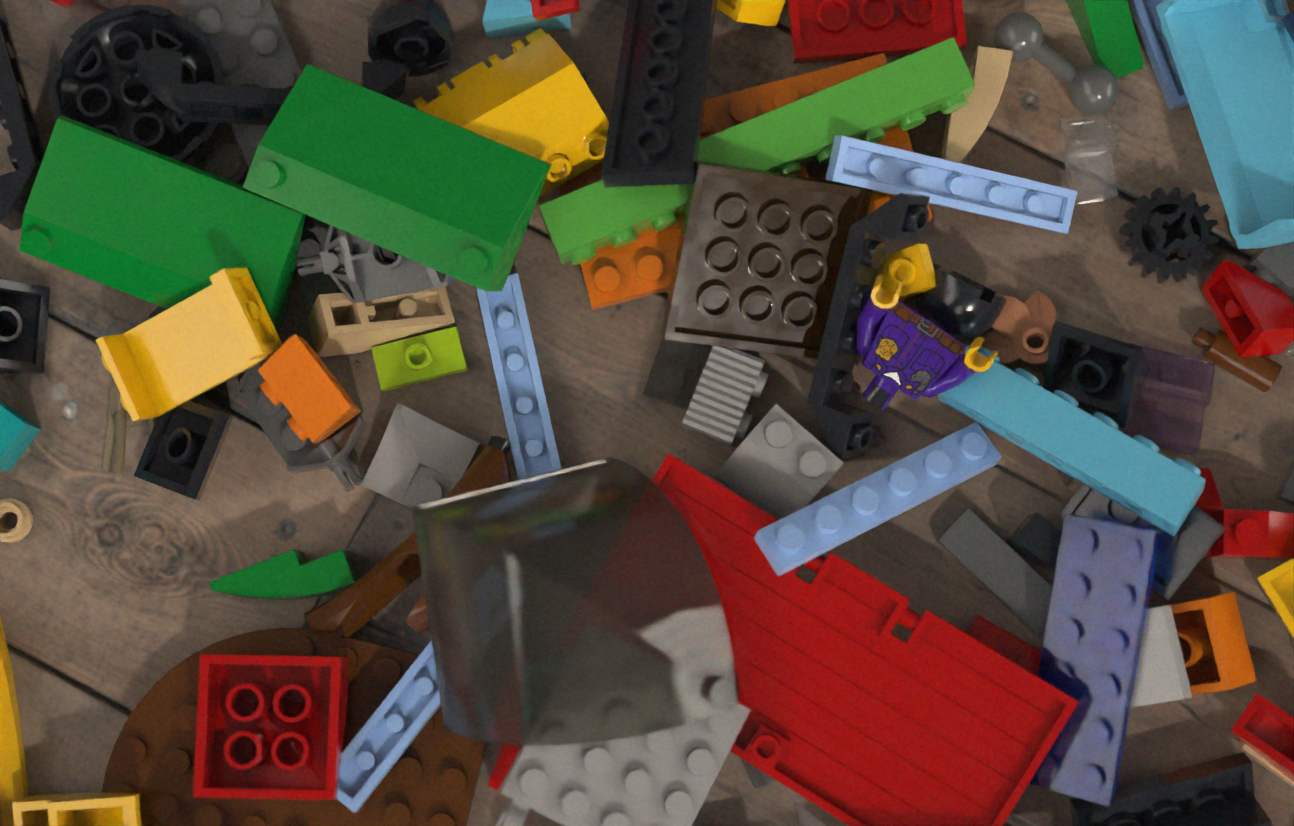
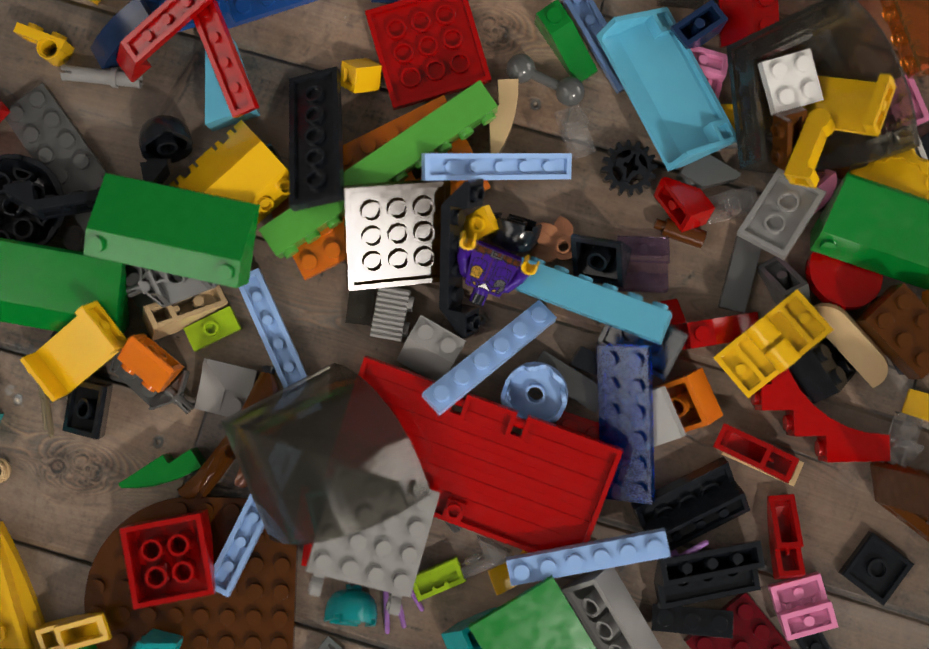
camera: 10 degrees left, 5 degrees up
(962, 552) = (539, 375): none -> light blue plate

